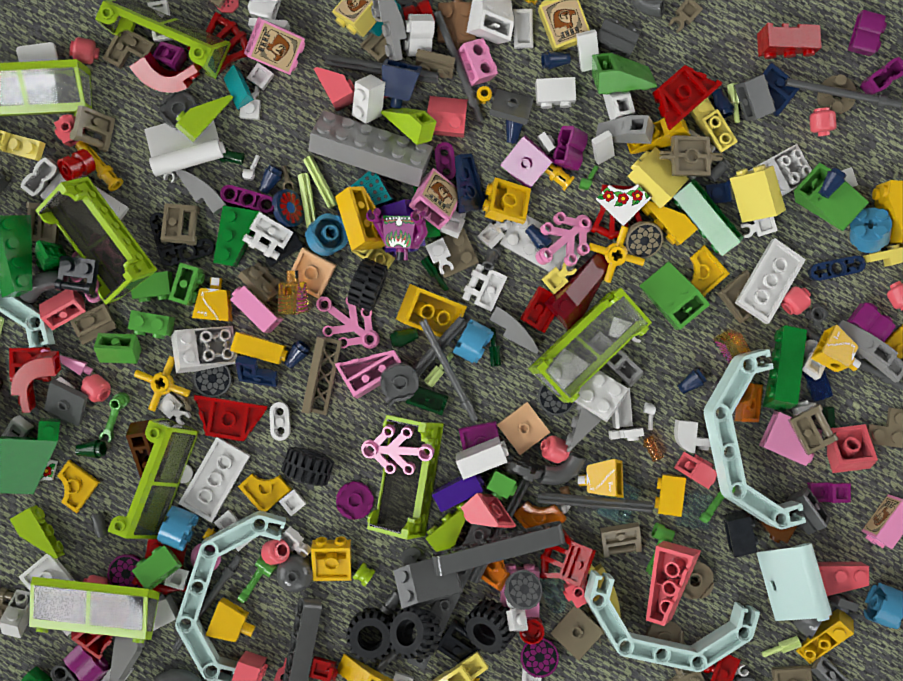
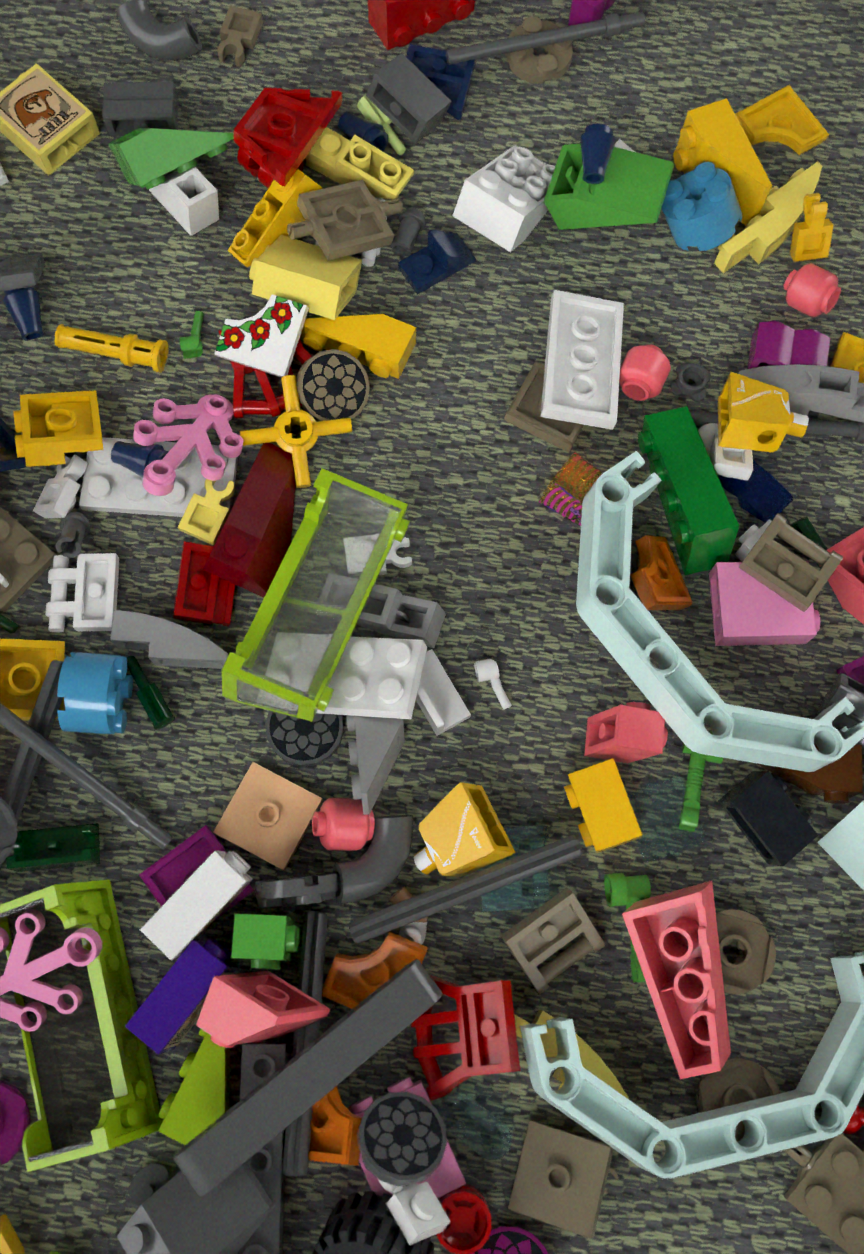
camera: 25 degrees left, 15 degrees down
(436, 373) = (55, 788): yellowish green axle -> none
(526, 162) = (69, 350): plate -> none
(546, 142) = (91, 308): white plate -> none
(554, 59) = (51, 179): dark blue cone -> none
(555, 92) = (72, 224): white brick -> none
(570, 148) = (135, 296): magenta brick -> none
(576, 596) = (524, 1102): coral brick -> none
(587, 46) = (93, 134): white tile -> none
(603, 147) = (190, 269): white tile -> none
(629, 129) = (218, 221): light grey slope -> none
(630, 433) = (473, 728): white plate -> none
(652, 448) = (528, 738): clear orange pin -> none
(674, 296) = (433, 455): bright green slope -> none
(686, 436) = (577, 686): white brick -> none
(692, 381) = (539, 584): dark blue cone -> none
(707, 217) = (423, 304): brick -> none
(707, 270) = (471, 397): yellow tile -> none
(757, 193) = (485, 226): light yellow brick -> none
(760, 226) = (523, 282): white plate -> none
(823, 121) = (536, 91): coral head -> none
(851, 270) = (689, 284): dark blue beam -> none

